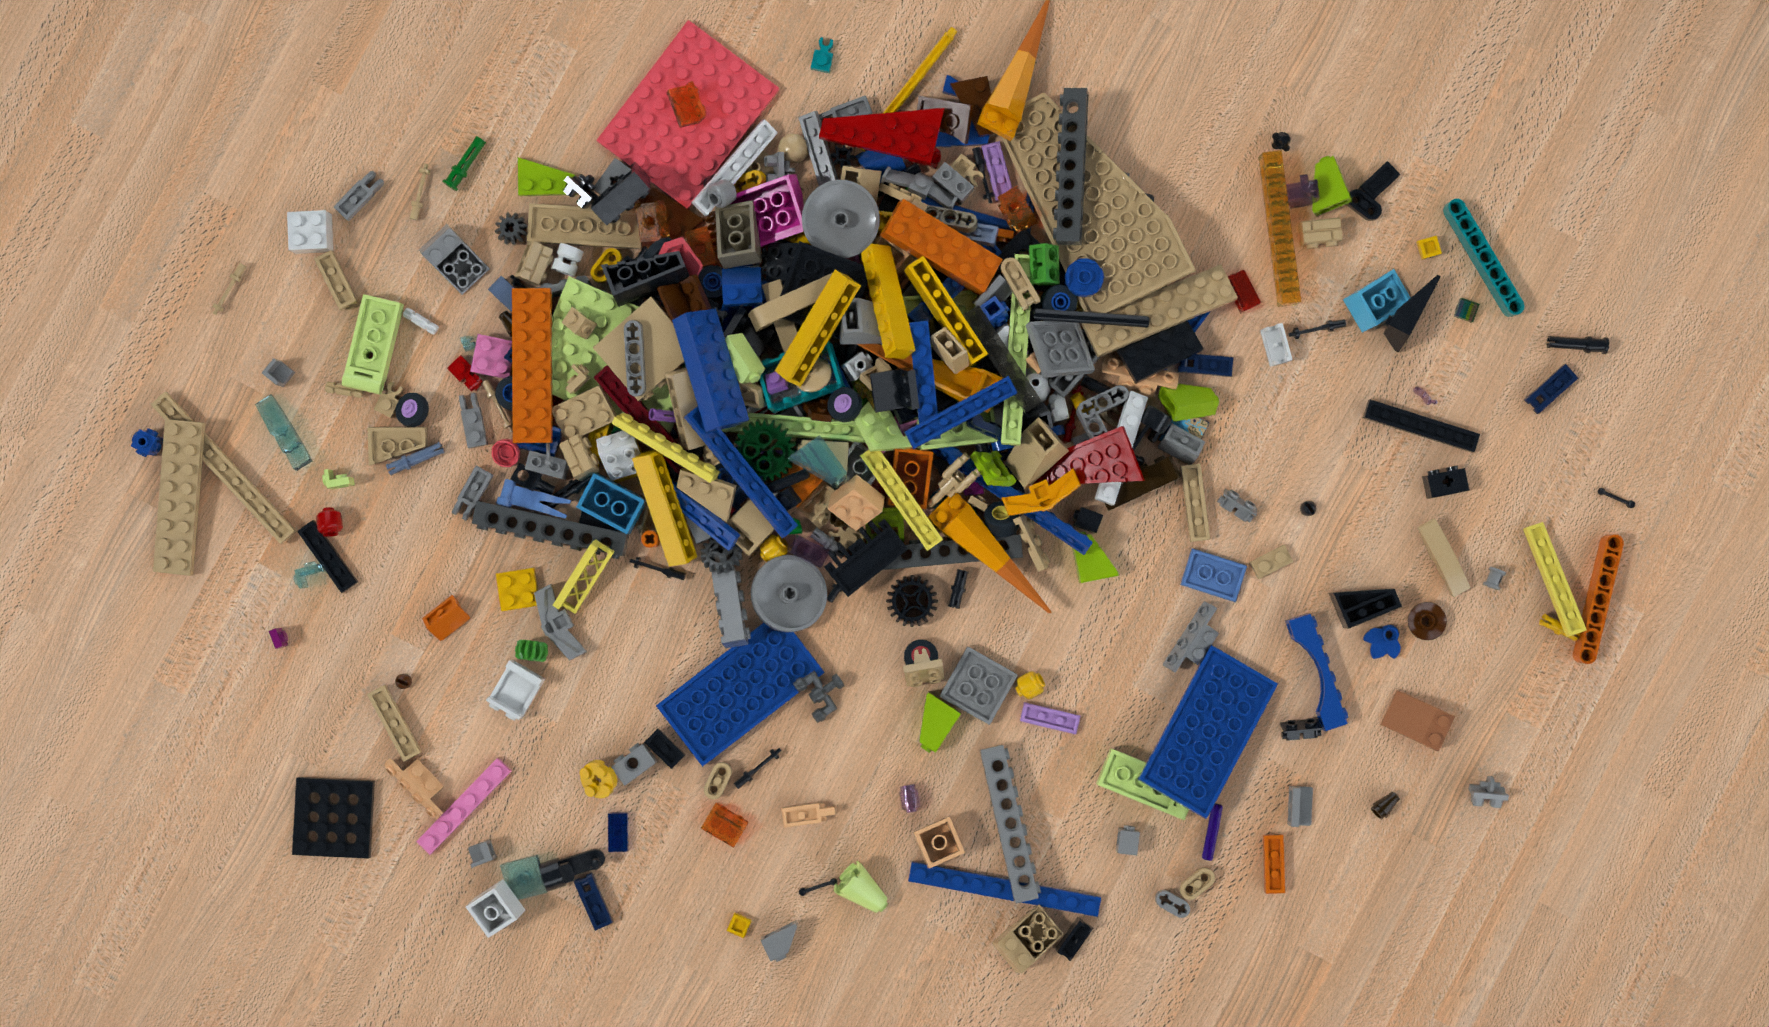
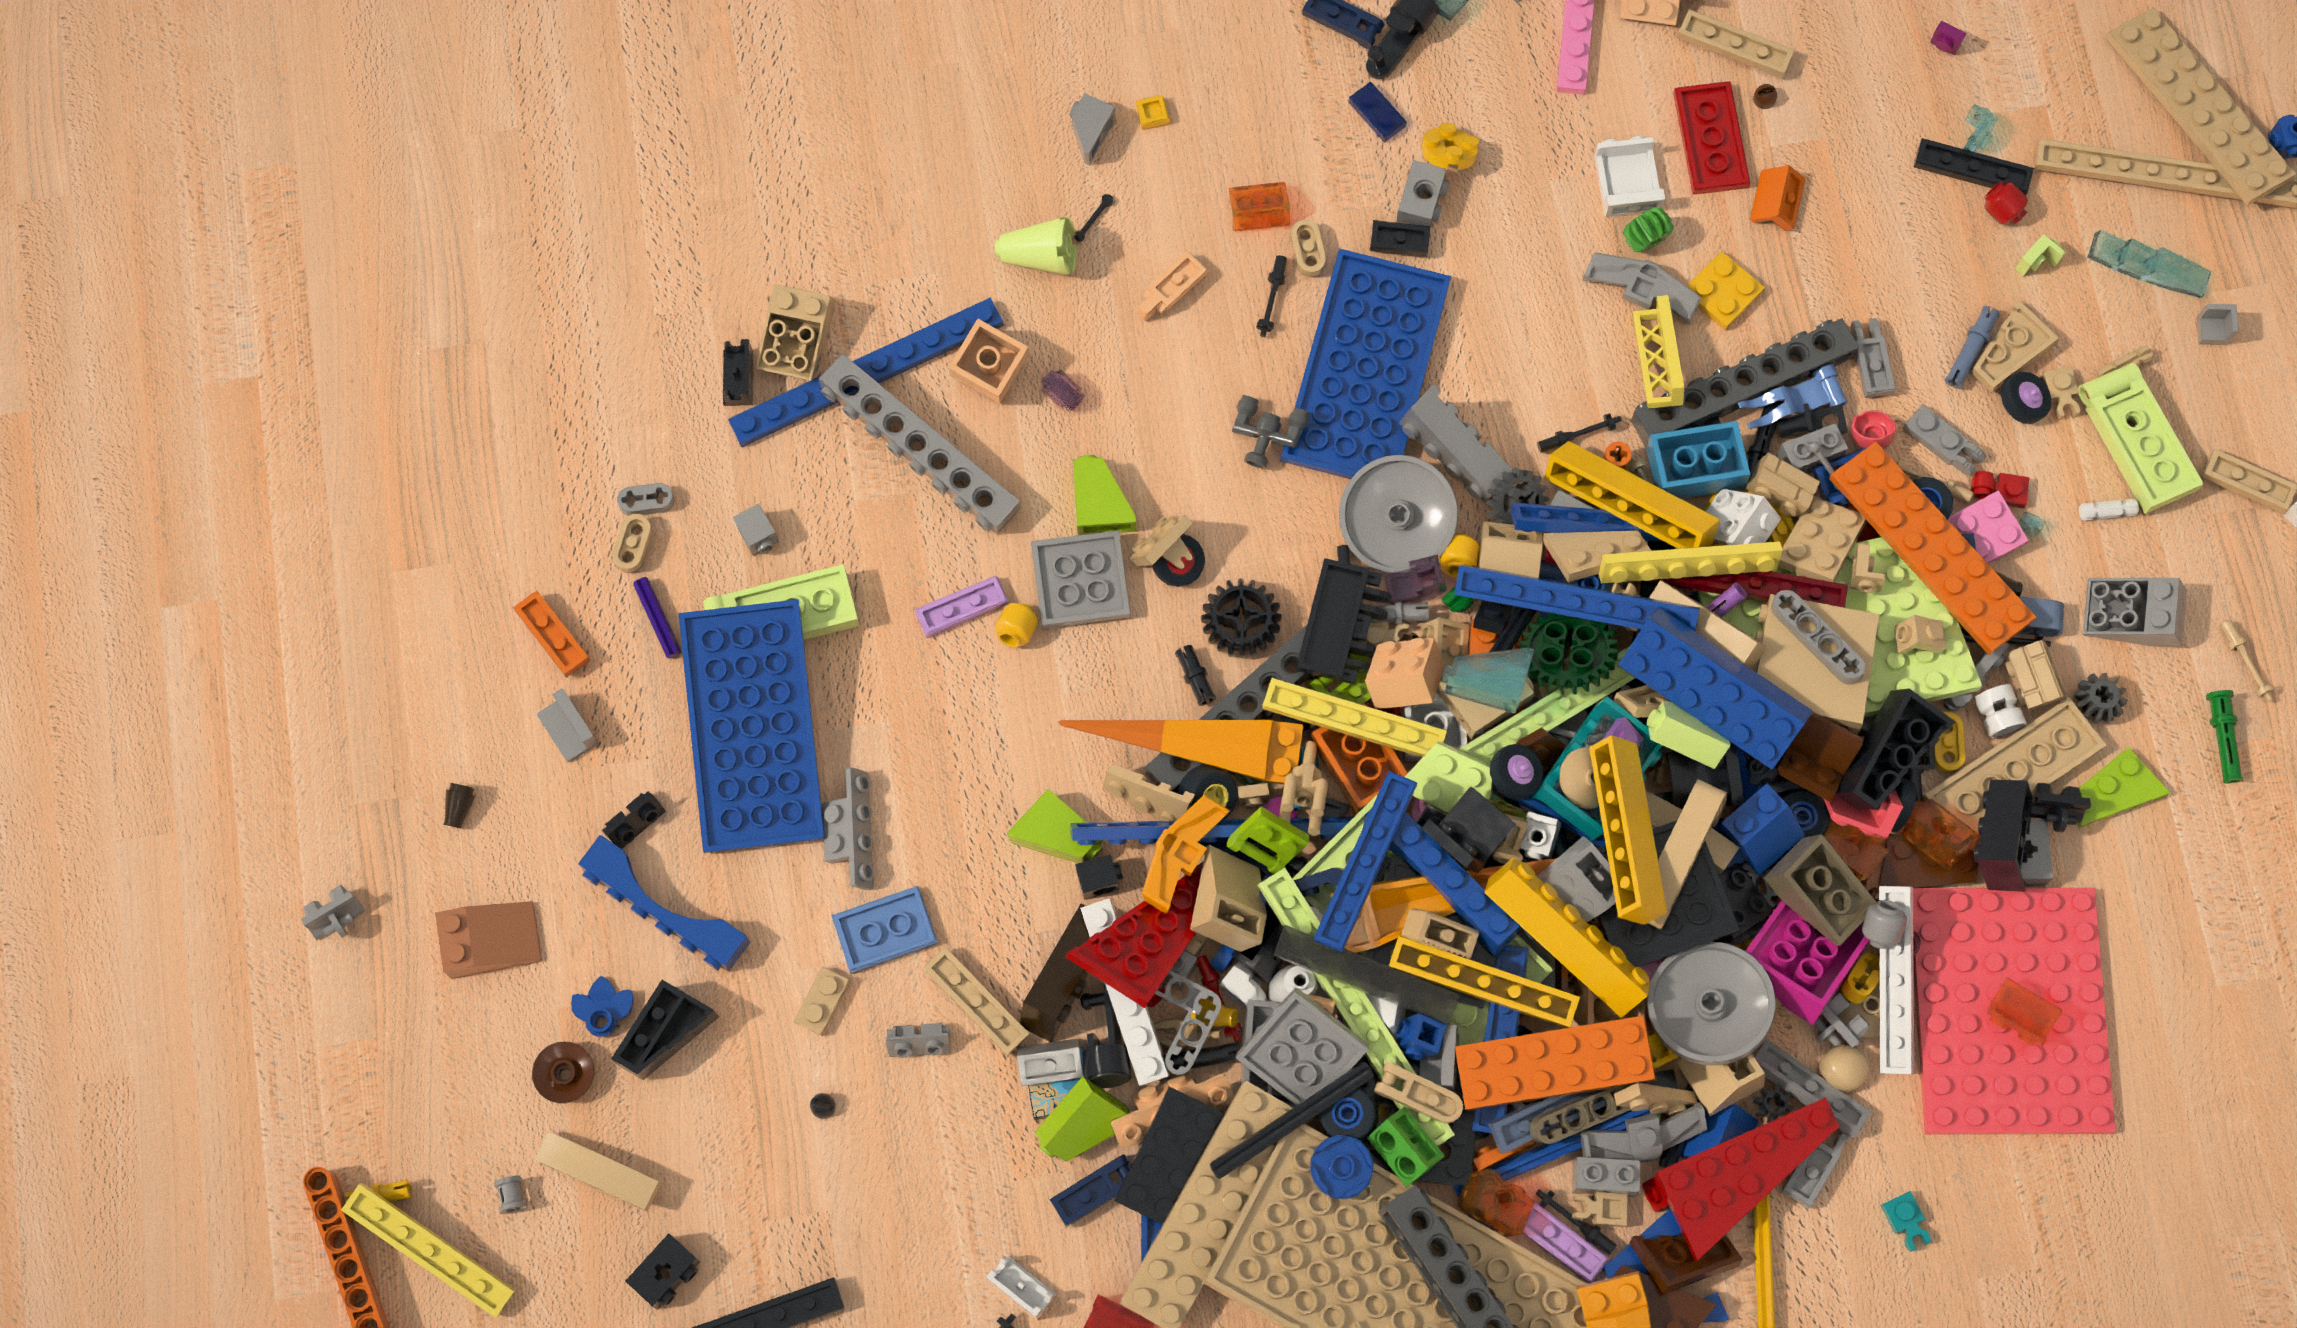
camera: 140 degrees right, 15 degrees down
(451, 680) = (1711, 138): none -> red tile

